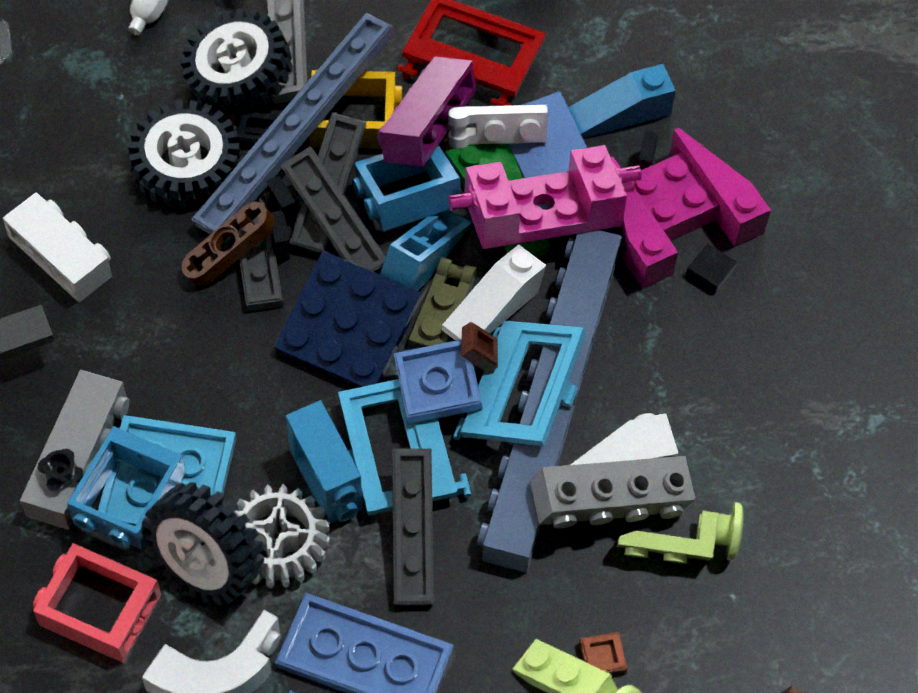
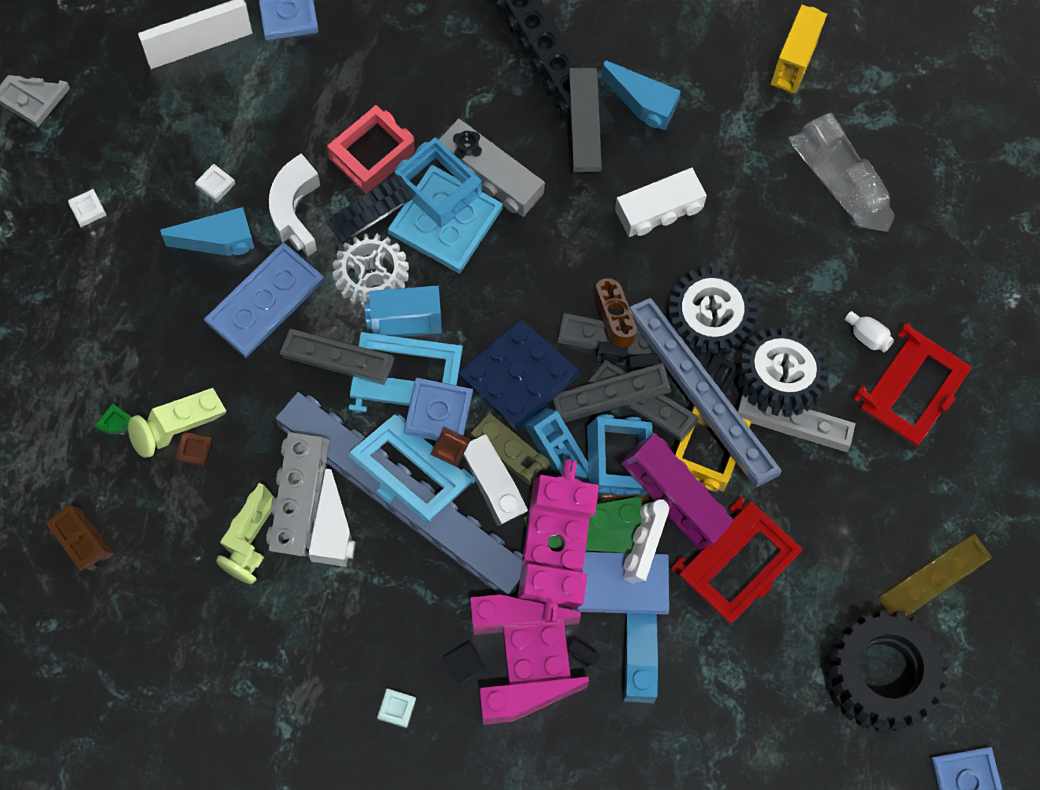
camera: 110 degrees right, 10 degrees up
(793, 316) = (396, 708): none -> light aqua tile

